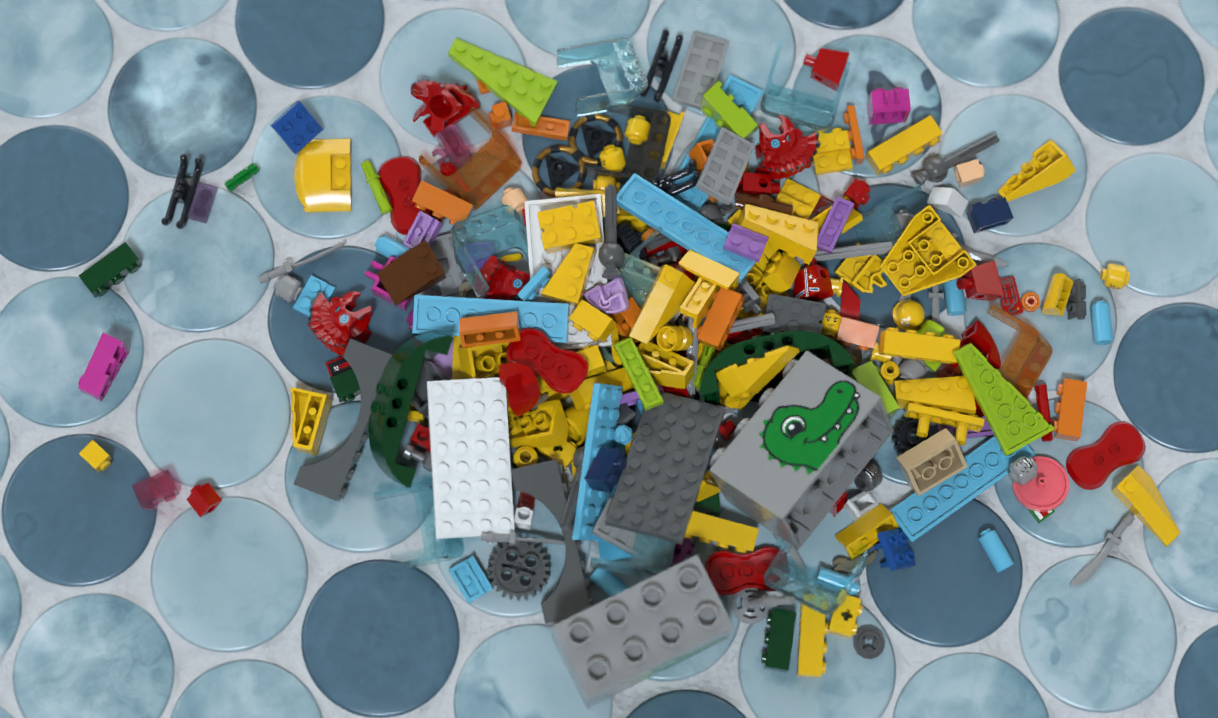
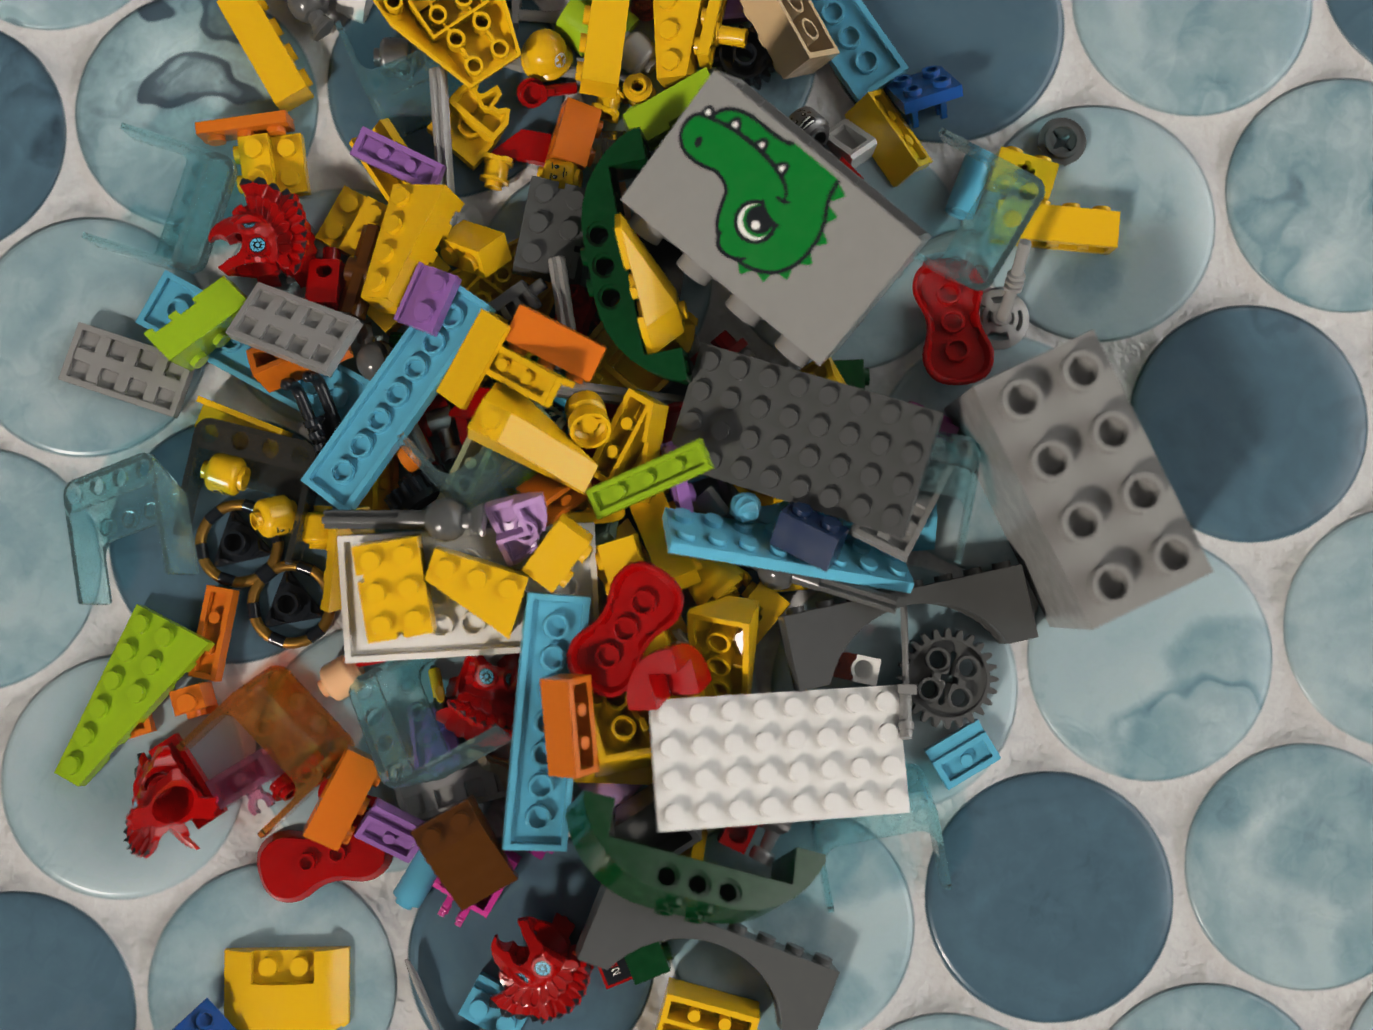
camera: 85 degrees left, 10 degrees up
(376, 187) = (312, 905): lime axle -> none
(522, 453) = (776, 676): yellow head -> none
(531, 289) = (503, 656): medium azure plate -> none
(608, 582) = (983, 522): medium azure brick -> none
(661, 66) = (116, 431): black piece -> none
(706, 359) = (630, 377): lime axle -> none
(722, 531) = (896, 350): yellow brick -> none
(779, 640) = (1066, 277): dark green brick -> none
(813, 283) = (495, 200): red torso -> none
(822, 204) = (362, 181): clear red tile -> none
(827, 66) = (128, 164): red torso -> none
(846, 566) = (940, 175): dark tan hair -> none
(858, 193) = (342, 124): red brick -> none
(885, 308) = (533, 92): none -> red plate
(888, 106) = (198, 66): dark pink hinge -> none

